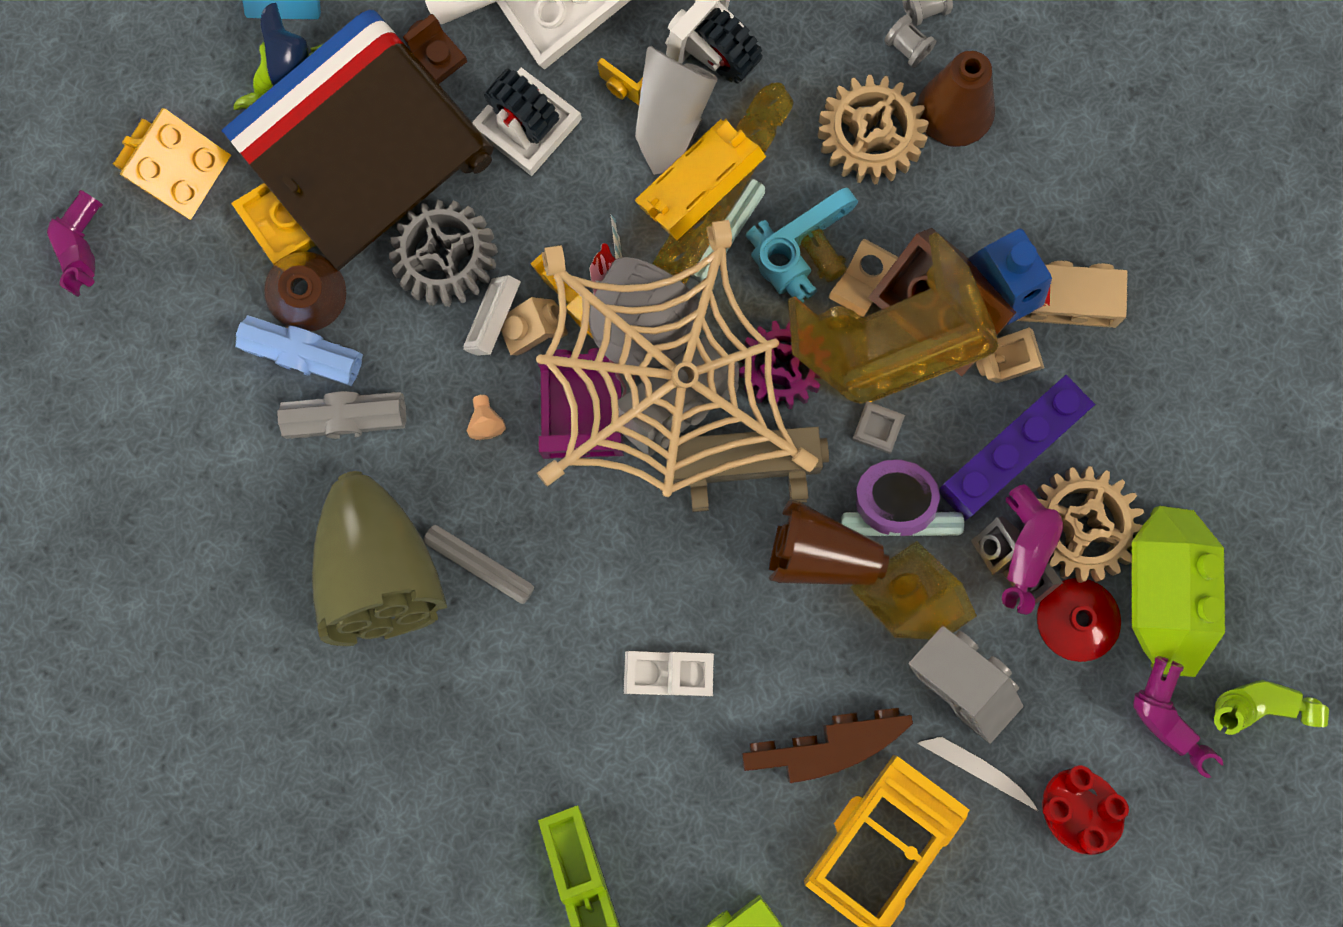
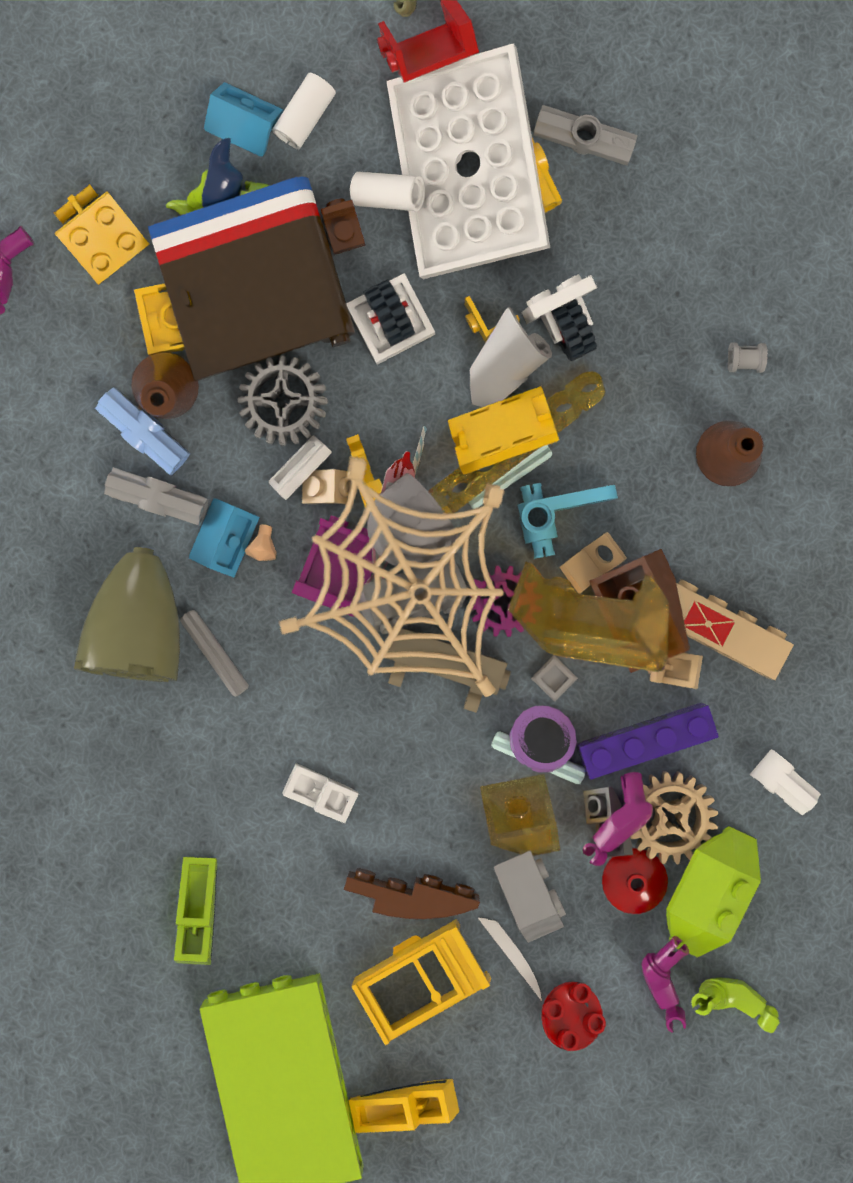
camera: 10 degrees right, 10 degrees up
(437, 428) = (223, 537): none -> dark azure panel
(823, 551) = (469, 756): reddish brown cone -> none
(825, 257) = (573, 530): clear yellow pin -> none
(883, 104) = (679, 428): tan gear -> none
(910, 41) = (718, 383): light grey bush -> none
(1015, 272) = (703, 613): blue torso -> none
(1184, 427) = (779, 778): none -> white piece

